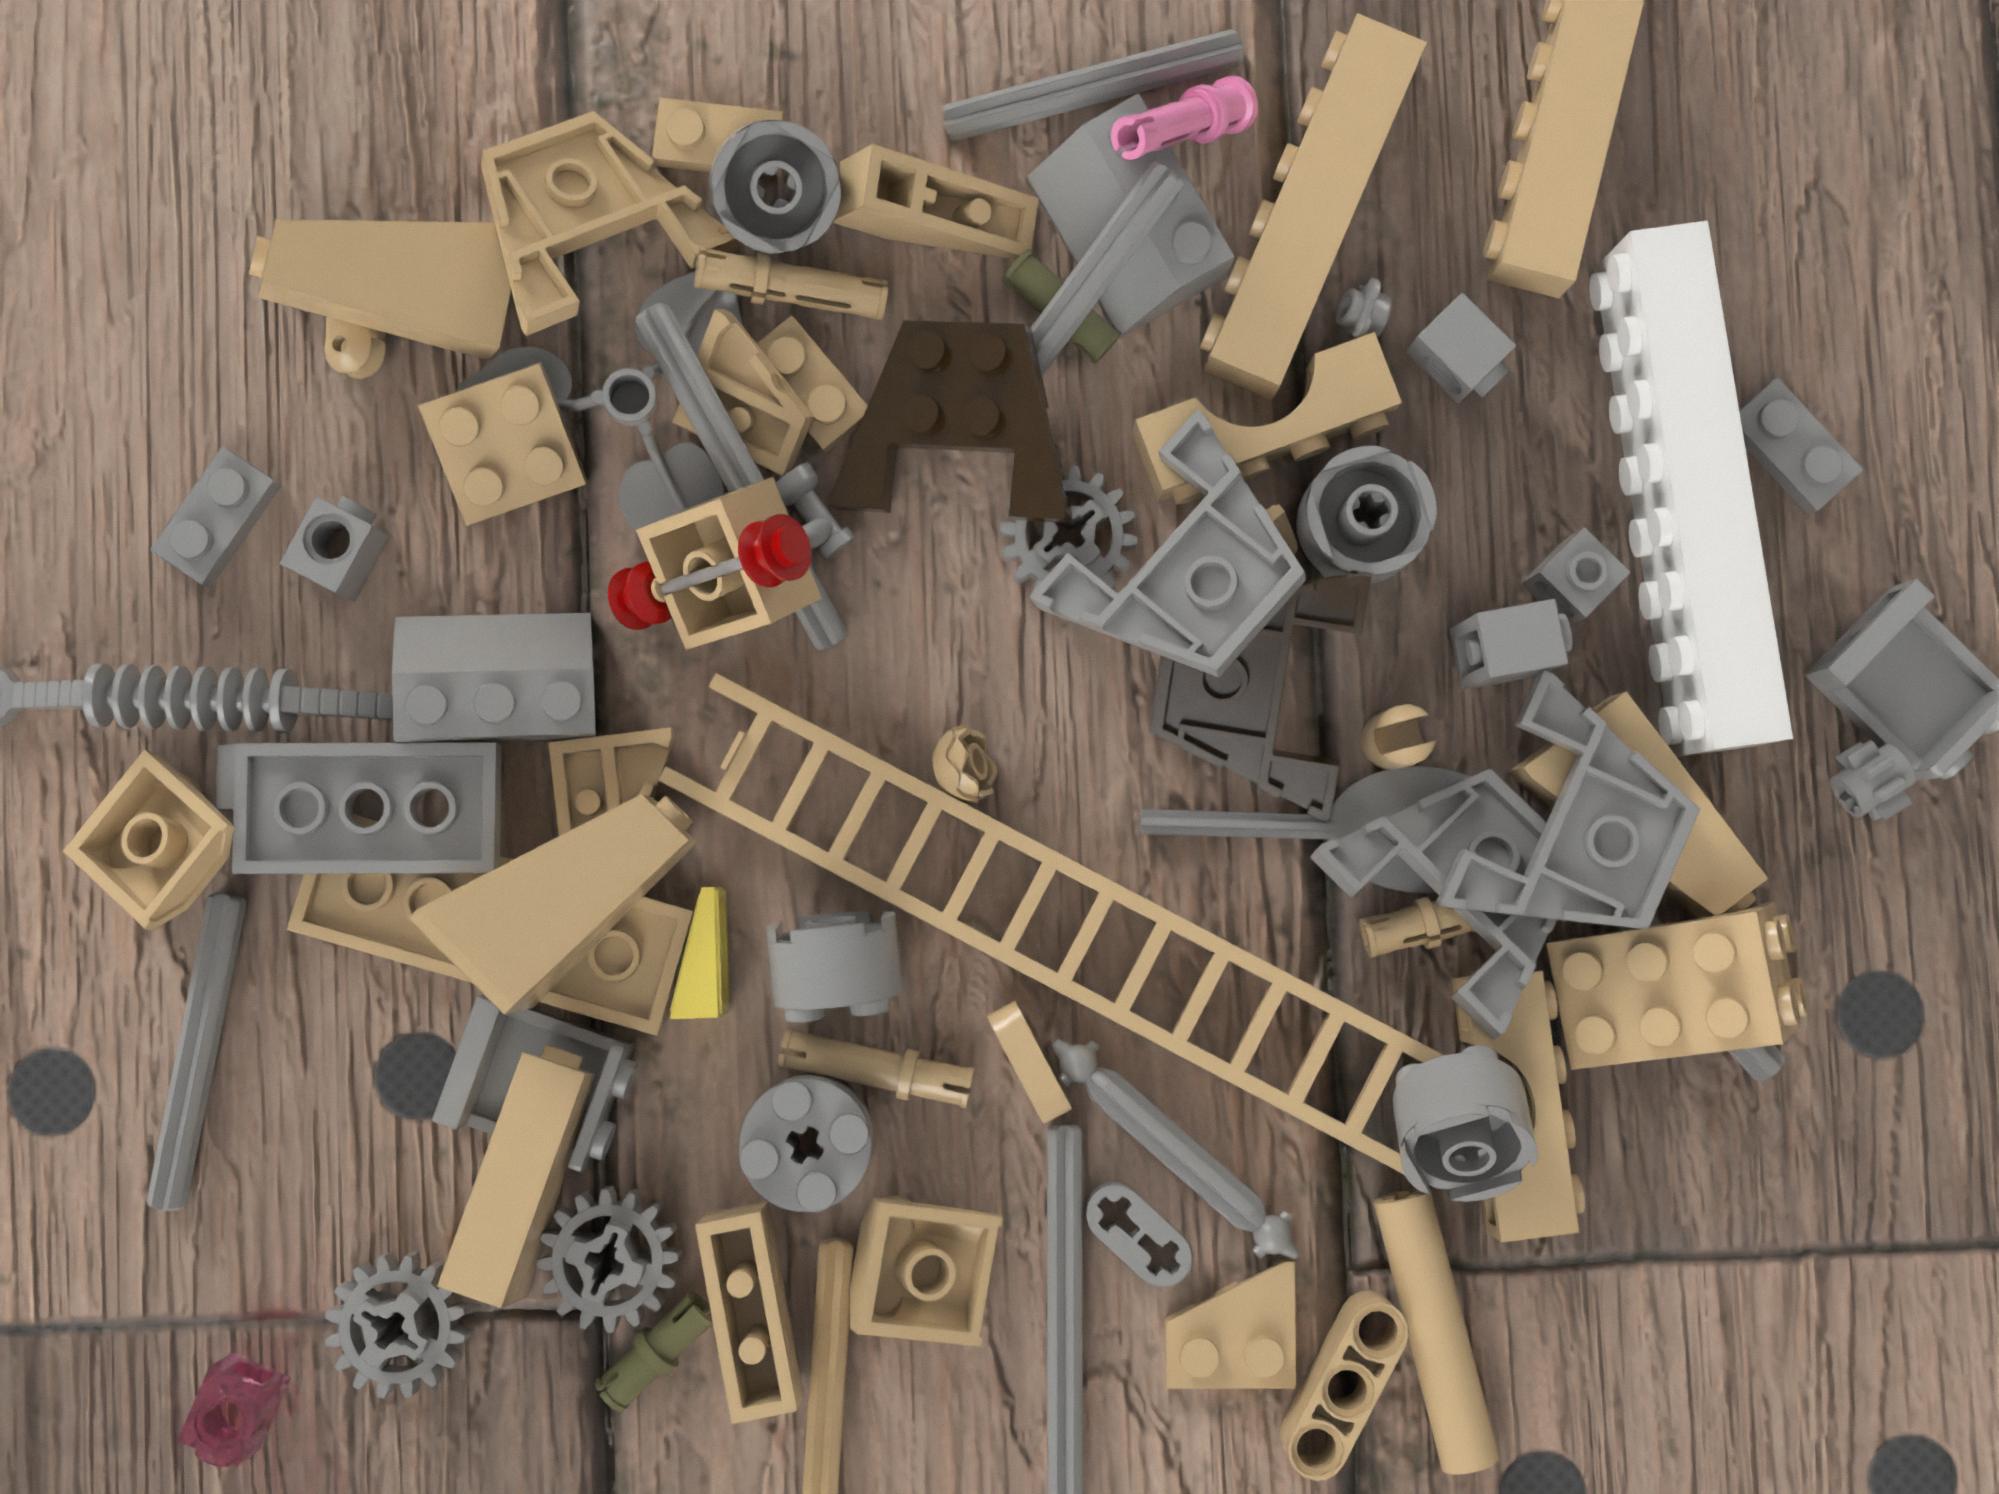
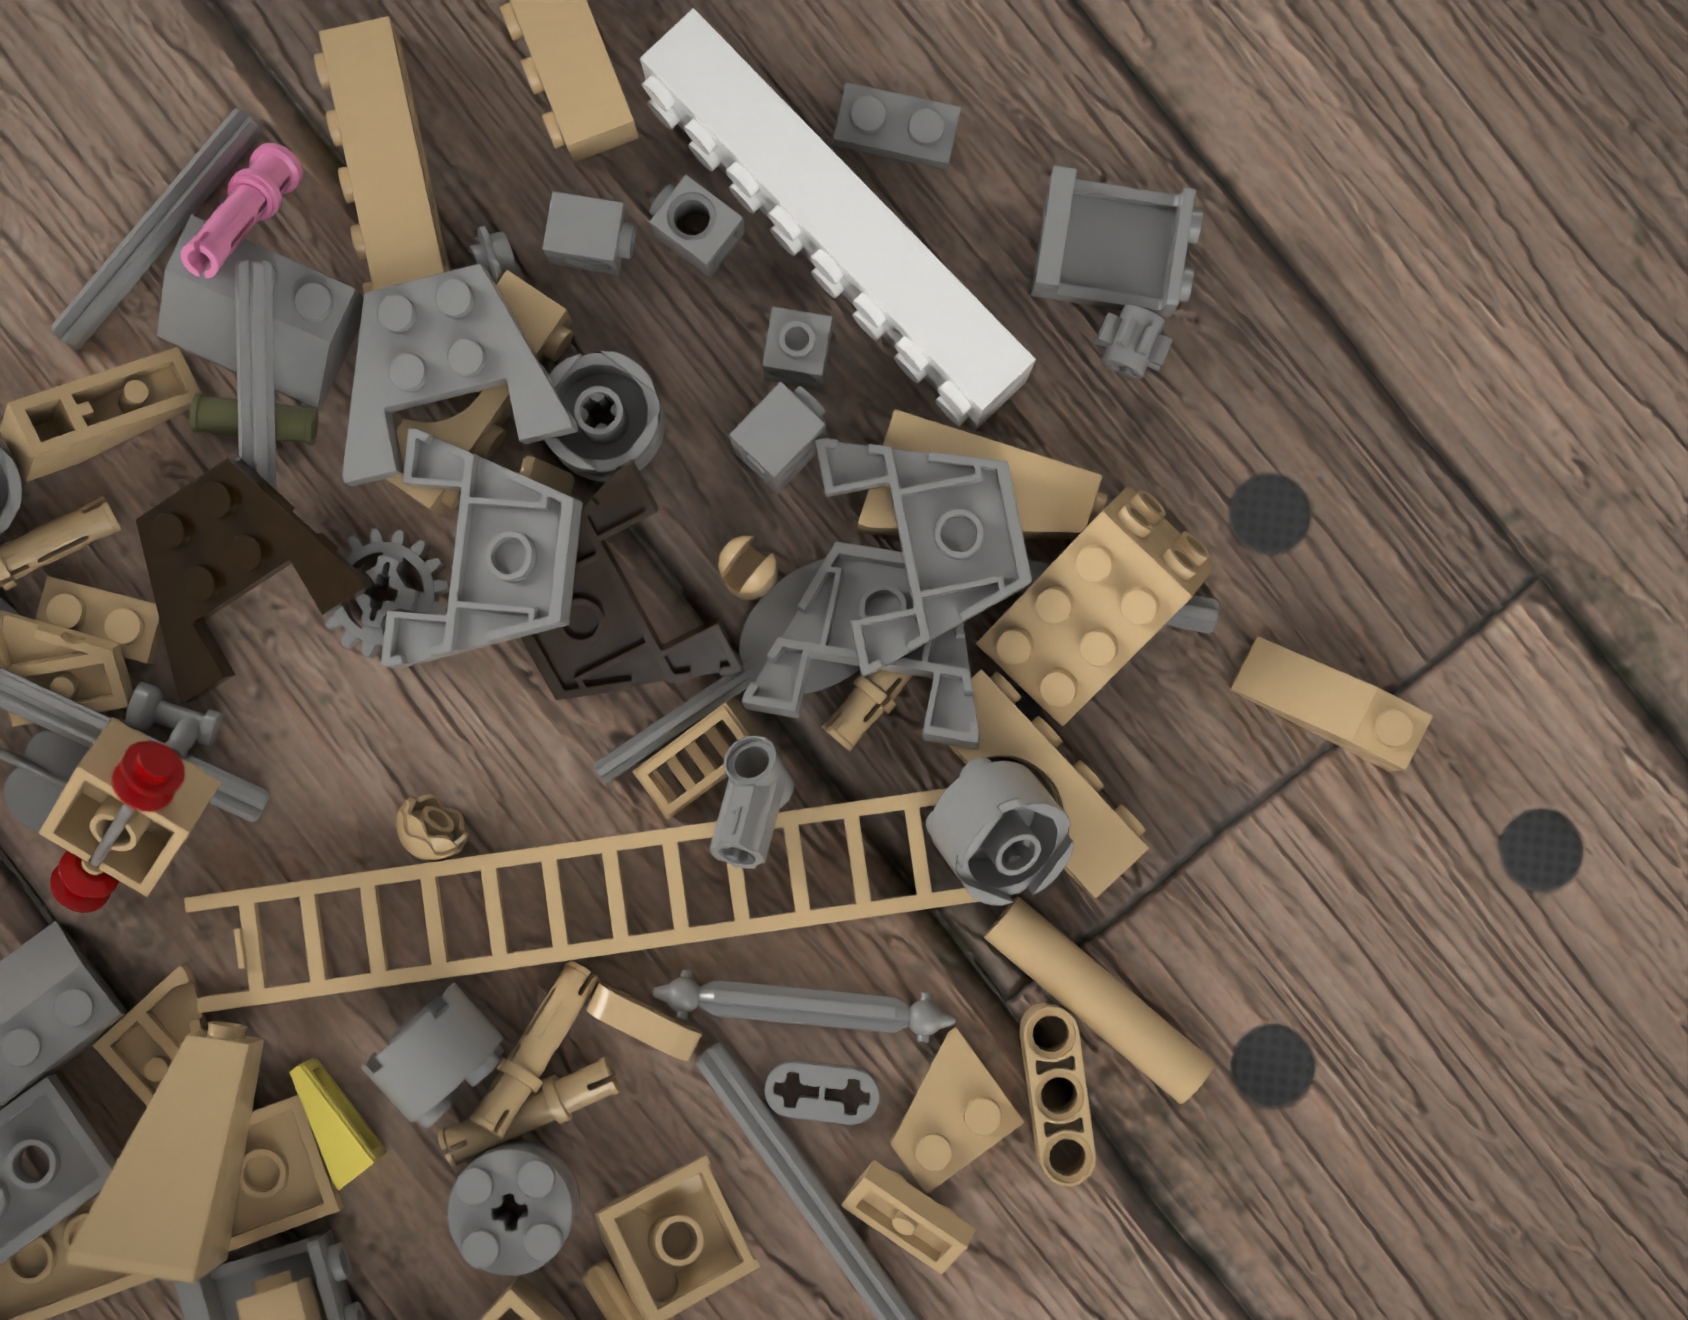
camera: 35 degrees left, 0 degrees up
(911, 1023) = (528, 1059): none -> tan pin
(1138, 1397) = (908, 1217): none -> tan plate
(1262, 943) = (750, 802): none -> light grey piece
(1272, 353) = (436, 344): none -> light grey wing
(1292, 870) = (657, 786): none -> tan slope
(1552, 435) = (710, 247): none -> light grey brick
(1824, 1224) = (1332, 704): none -> tan slope

